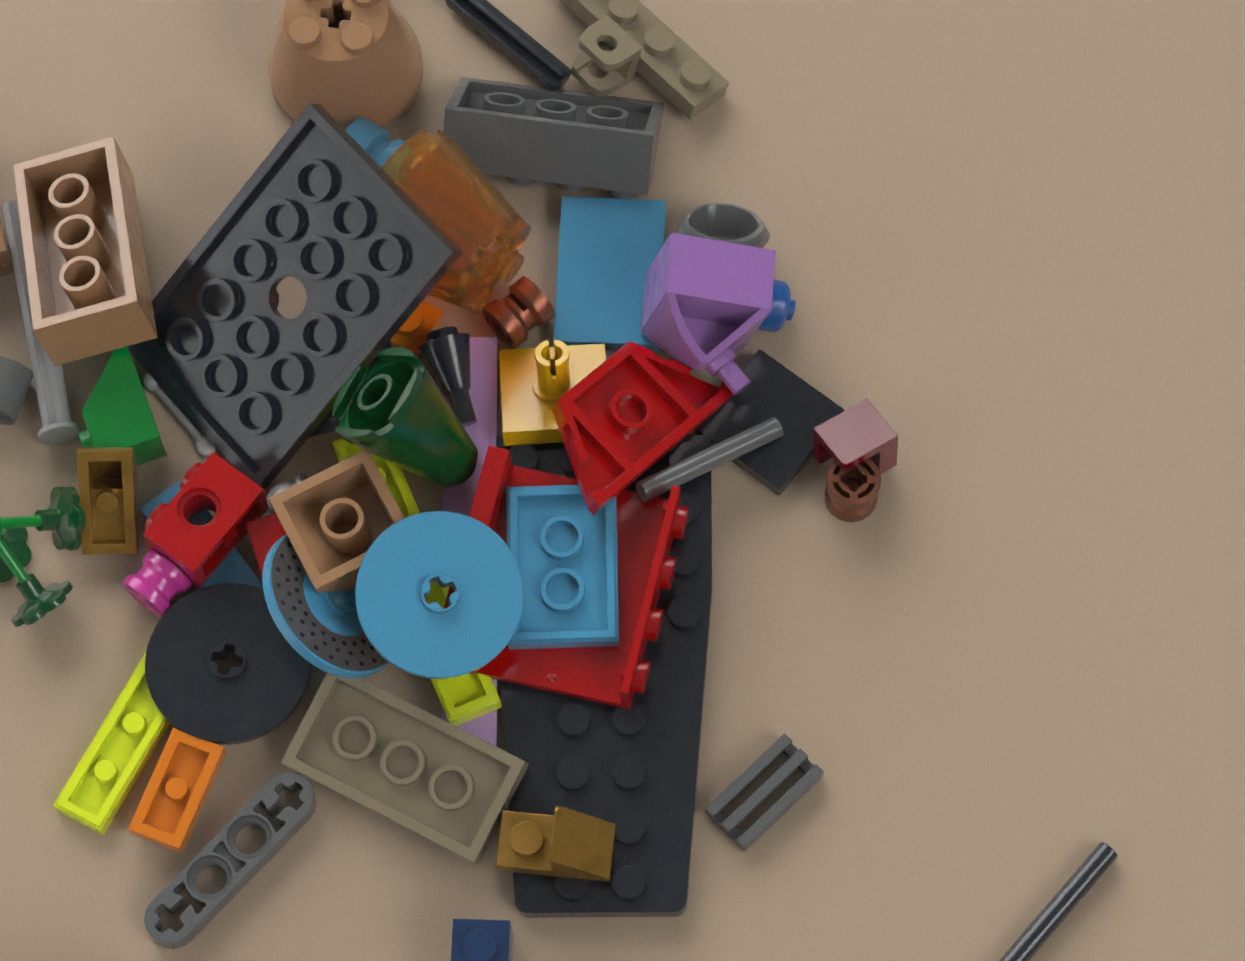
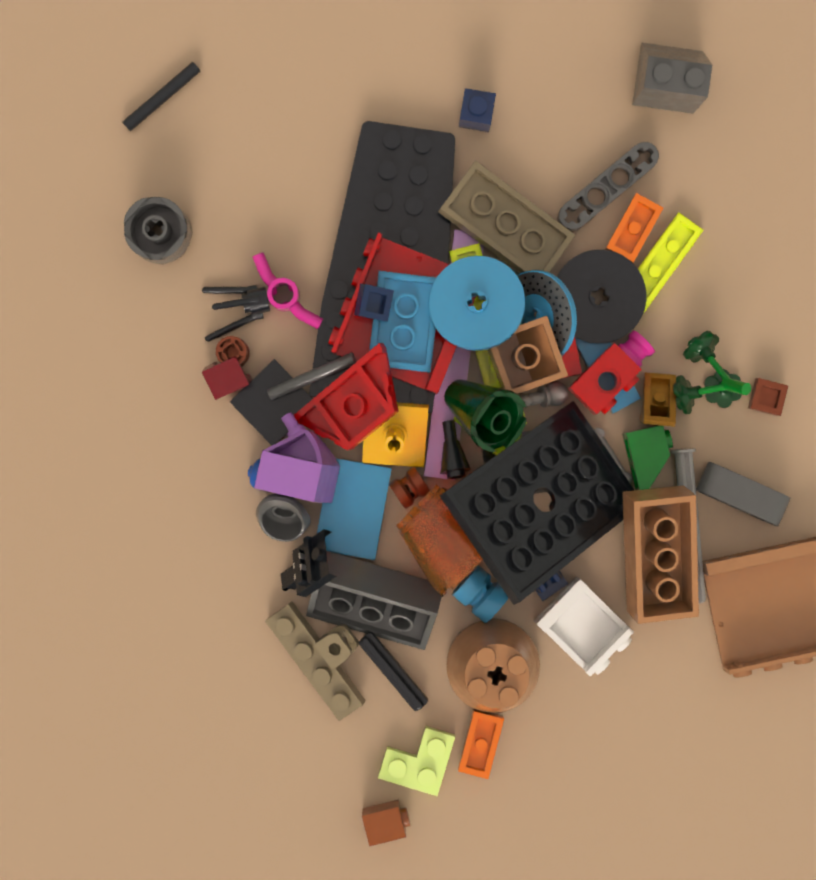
camera: 175 degrees left, 20 degrees up
(197, 139) = (584, 627): none -> white panel
(556, 844) = (428, 161): pearl gold slope -> none
(618, 576) = (373, 302): none -> dark blue tile
(670, 163) = (309, 566): none -> black piece
(775, 614) = (274, 283): none -> dark pink piece
(797, 759) = (324, 159): dark grey tile -> none
(829, 573) = (253, 300): none -> black plant
(1001, 639) = (140, 234): none -> dark grey brick

